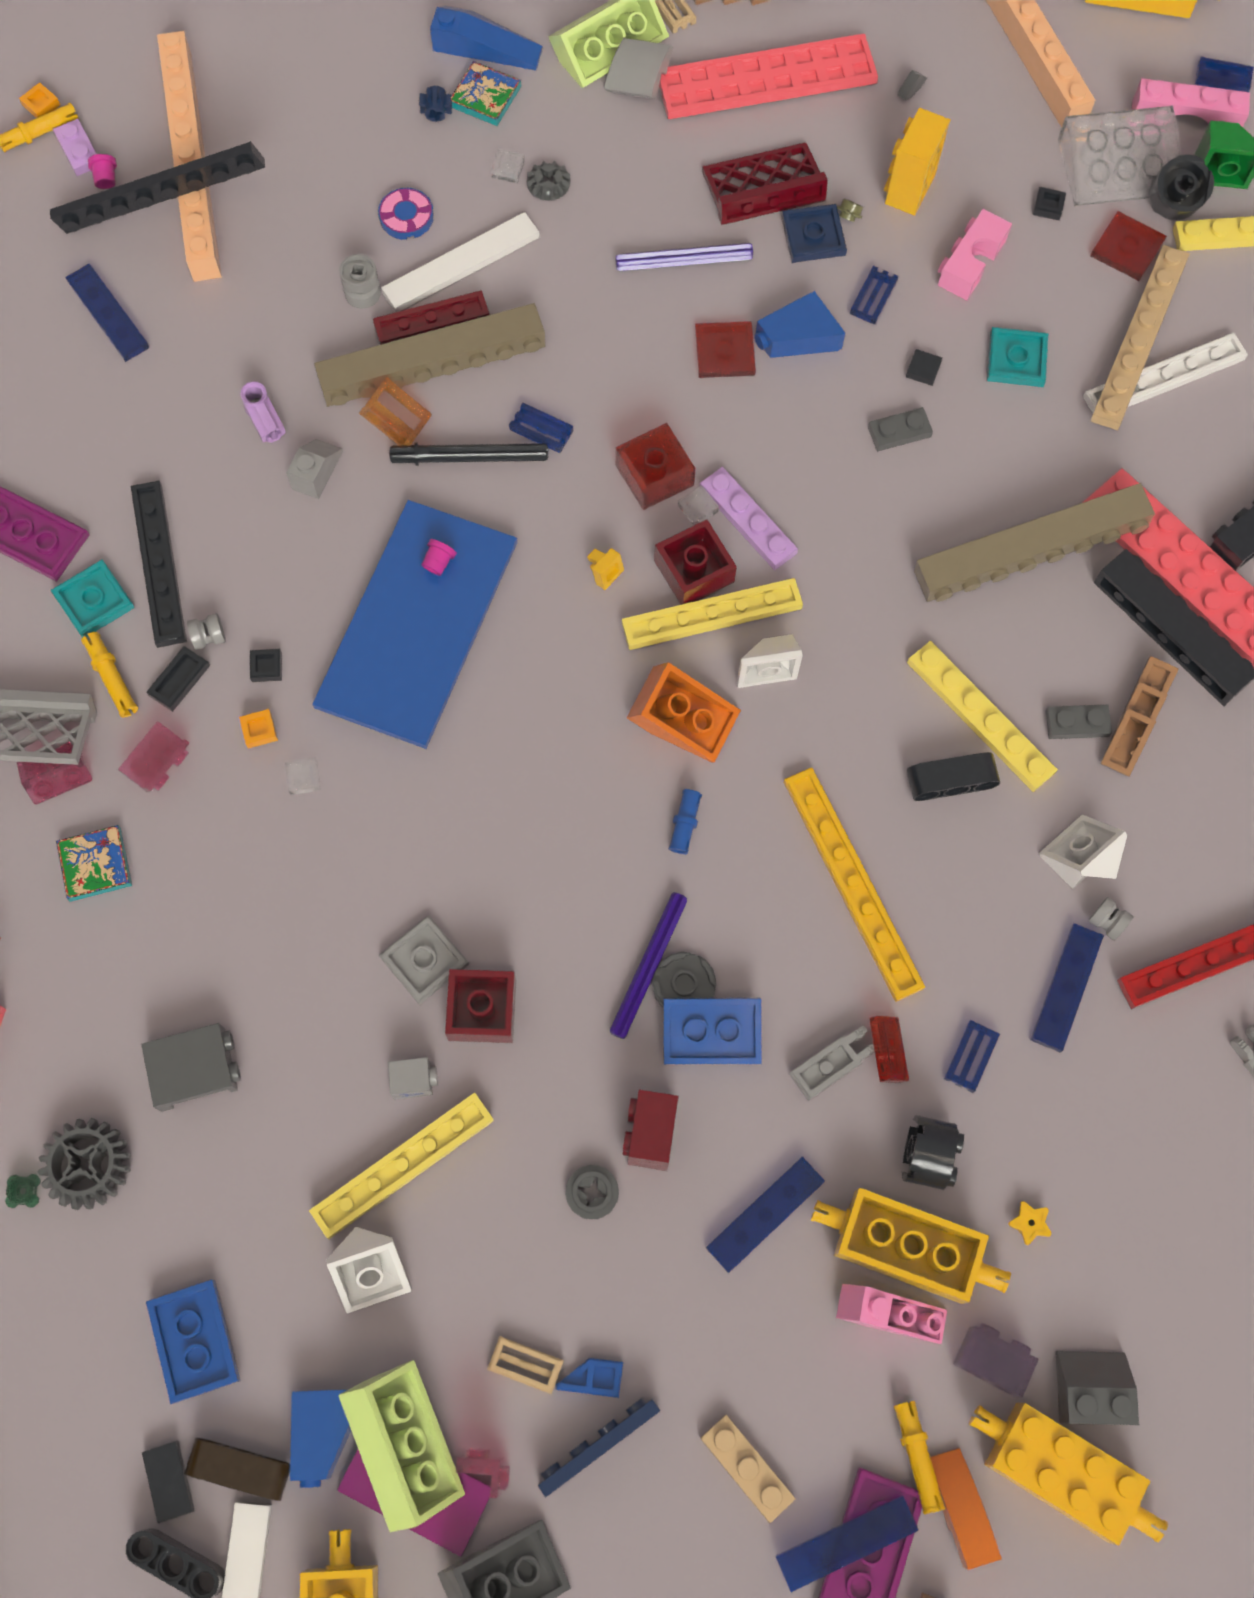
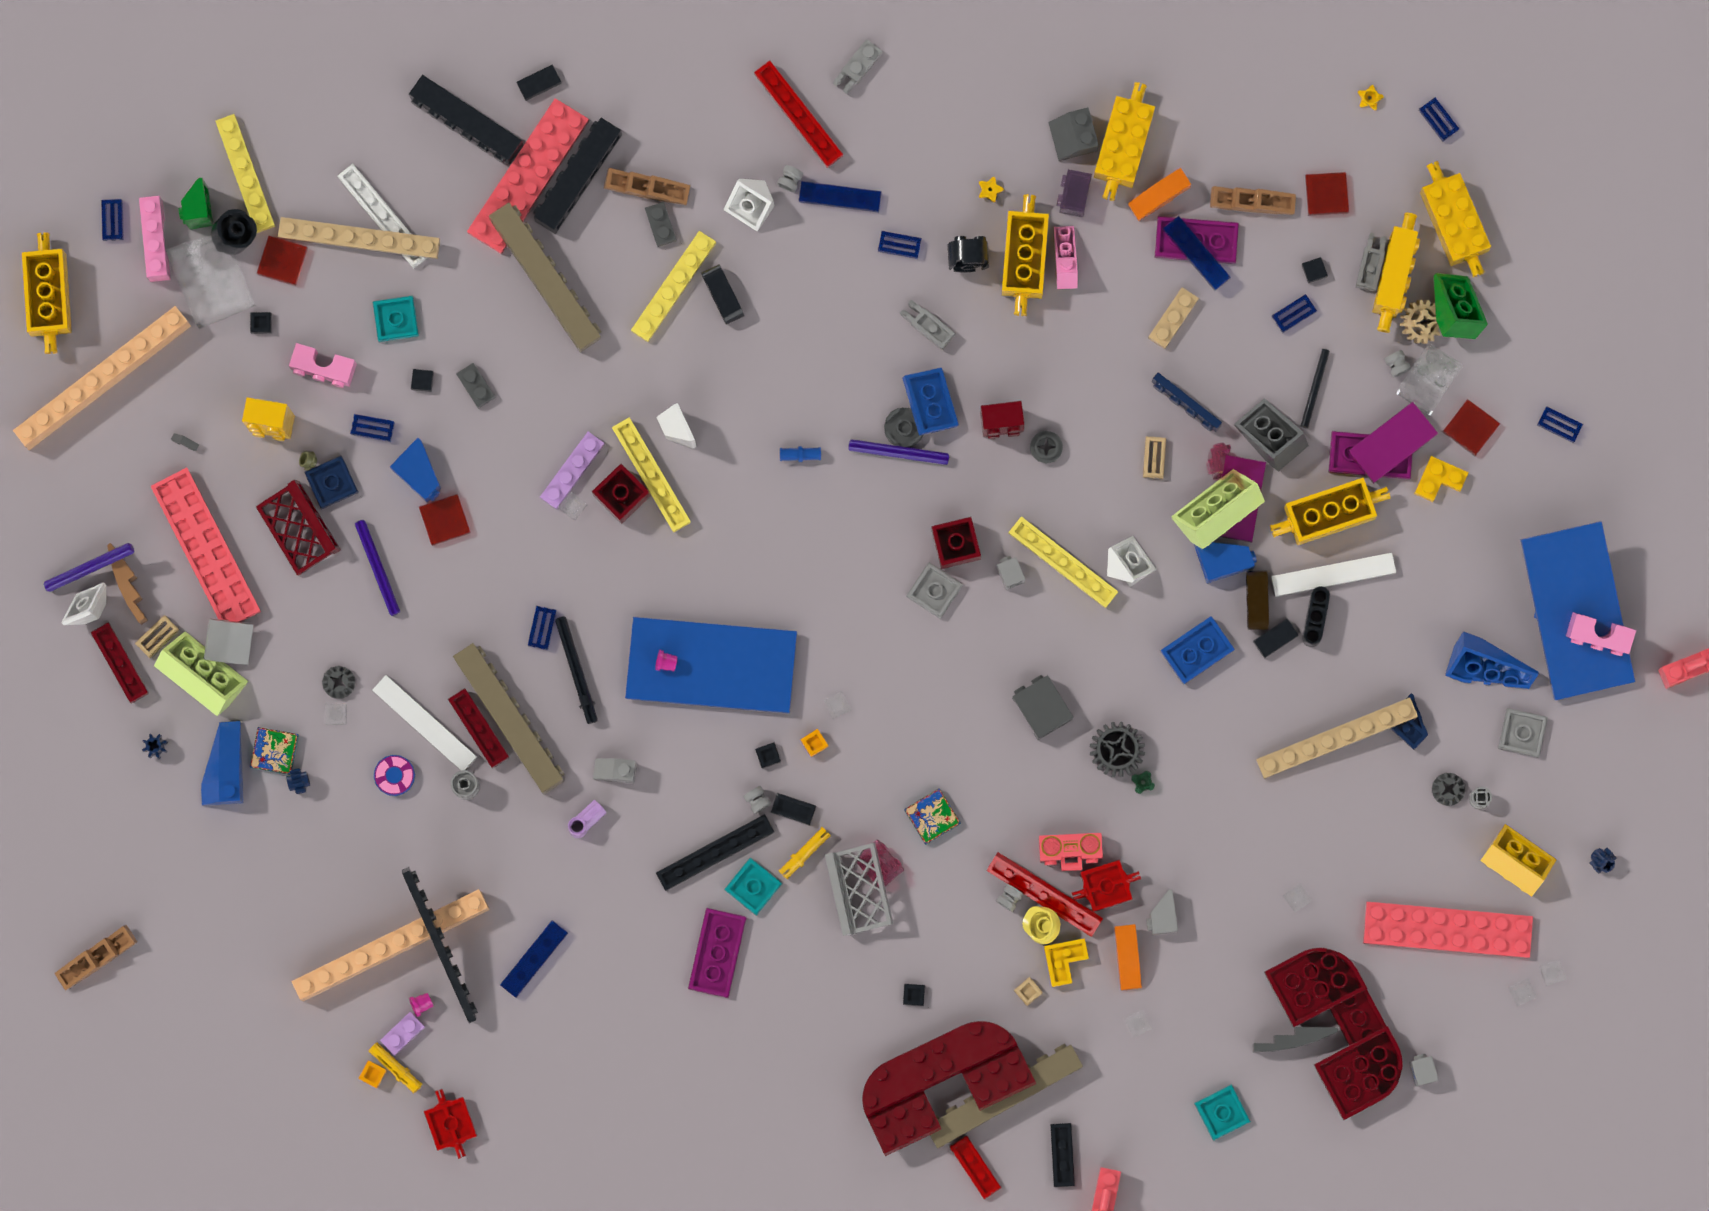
camera: 100 degrees left, 10 degrees up
(153, 758) = (854, 800): clear pink bracket -> none
(390, 423) = (565, 740): clear orange tile -> none
(594, 1378) = (1150, 417): blue tile -> none
(605, 567) = (637, 553): yellow tile -> none
(655, 466) = (556, 539): clear red brick -> none
(683, 712) = (727, 474): orange slope -> none
(765, 1215) = (1029, 343): clear blue tile -> none
(854, 885) = (809, 341): yellow tile -> none
(889, 1049) = (910, 294): clear red tile -> none
(915, 1442) = (1139, 224): yellow pin -> none

